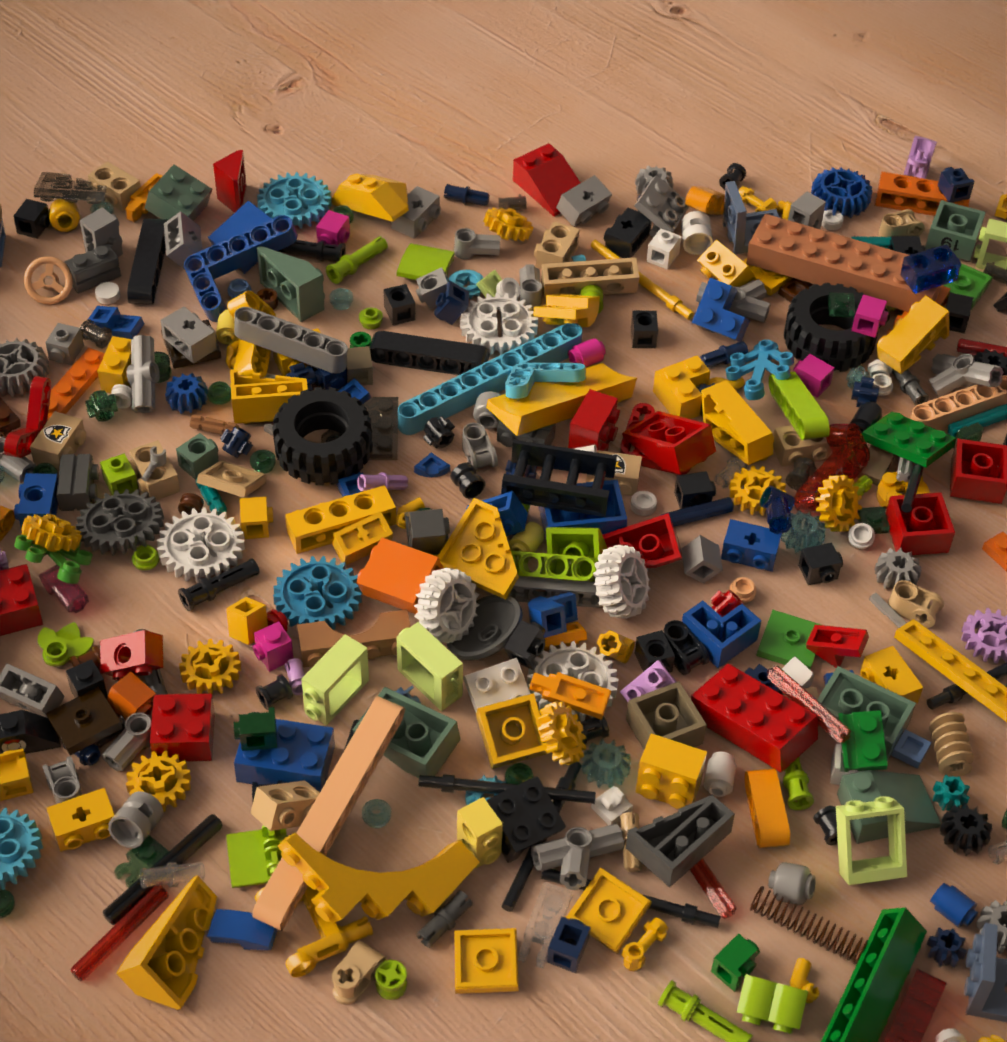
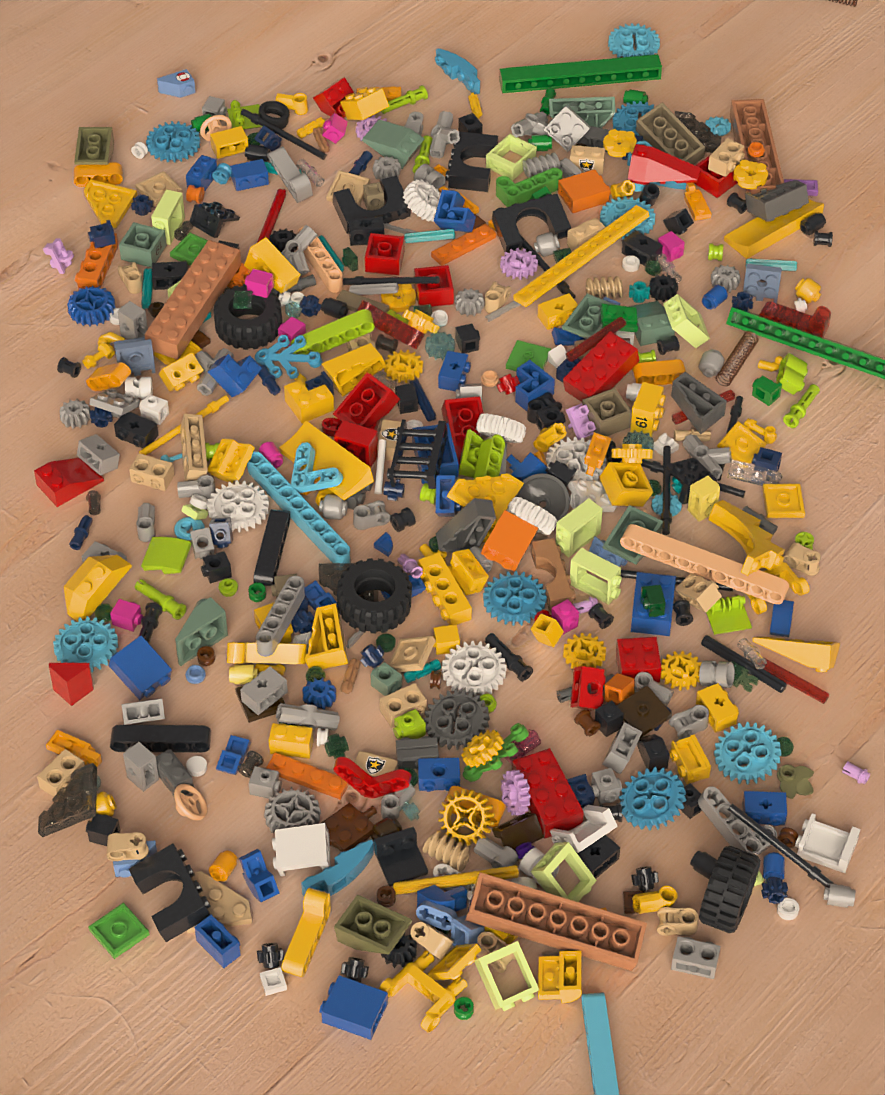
camera: 90 degrees left, 0 degrees up
(64, 642) = (568, 743): lime plate -> none
(156, 460) = (403, 694): light grey hand -> none
(177, 193) = (89, 719): sand green brick -> none
(234, 259) = (178, 667): blue beam -> none
(439, 432) = (357, 536): black gear -> none
(508, 224) = (125, 500): yellow gear -> none
(644, 329) = (243, 421): black brick -> none
(778, 509) = (435, 348): clear blue piece -> none
(837, 642) = (536, 329): red slope -> none
(909, 439) = (360, 283): green plate -> none
(930, 268) = (223, 242): clear blue brick -> none

